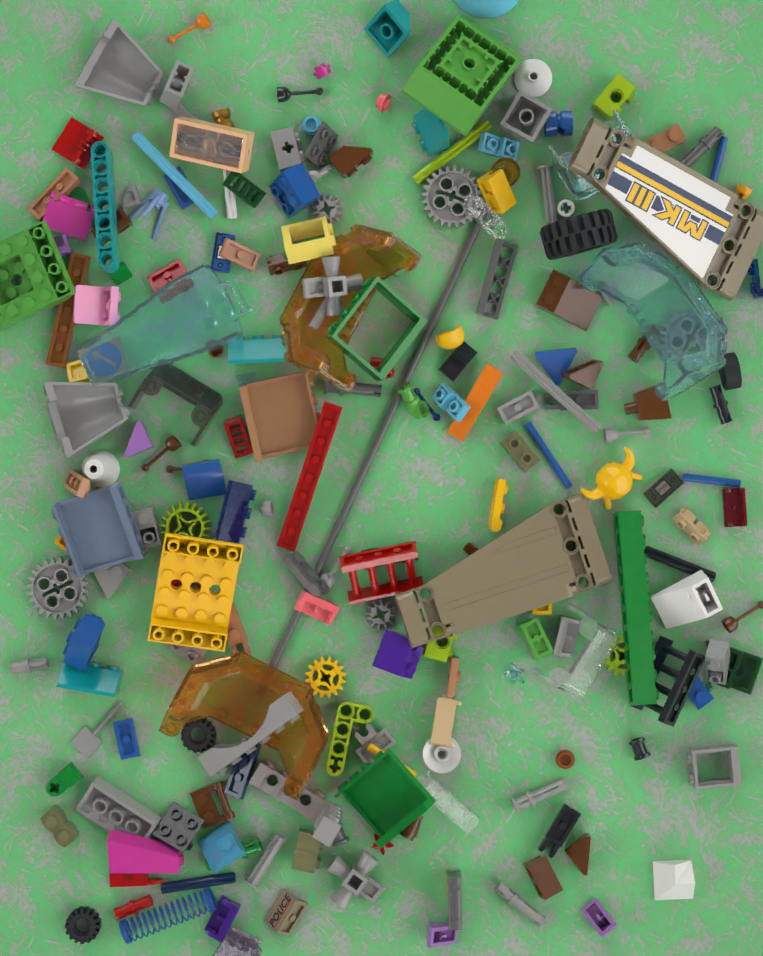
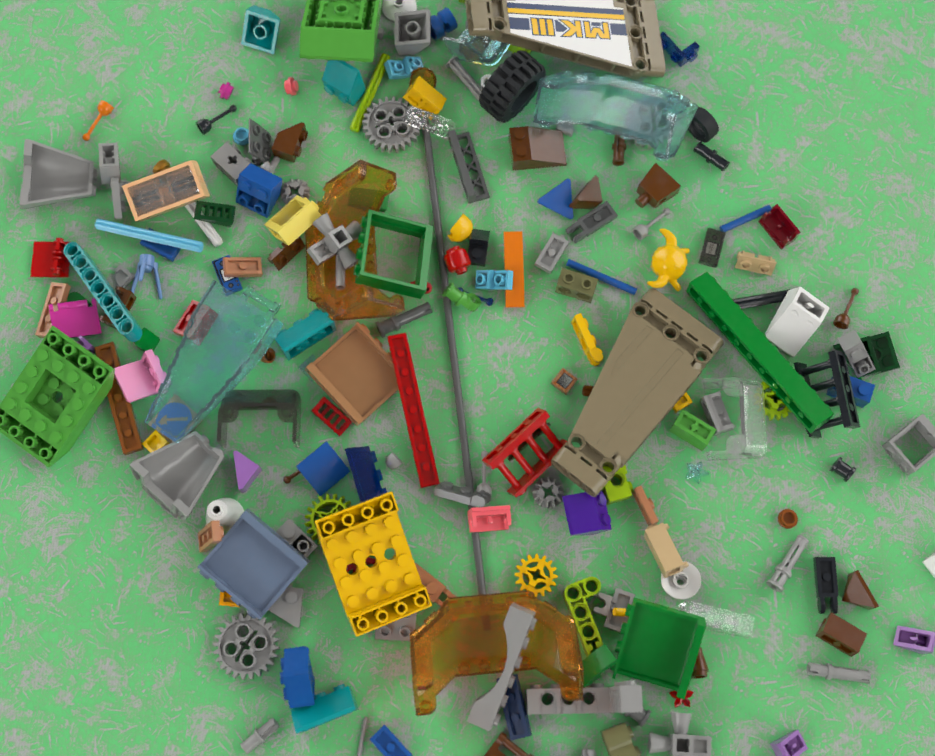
camera: 30 degrees left, 15 degrees down
(163, 130) = (118, 205): none -> light grey plate
(171, 444) = (275, 457): reddish brown hinge -> none
(198, 746) = (466, 707): black tyre -> none
(327, 778) = (597, 663): none -> green slope
(430, 364) = (457, 260): none -> red head
(454, 900) = (780, 705): dark grey piece -> none
(455, 528) = (564, 381): none -> tile
(555, 391) = (573, 220): light grey axle -> none

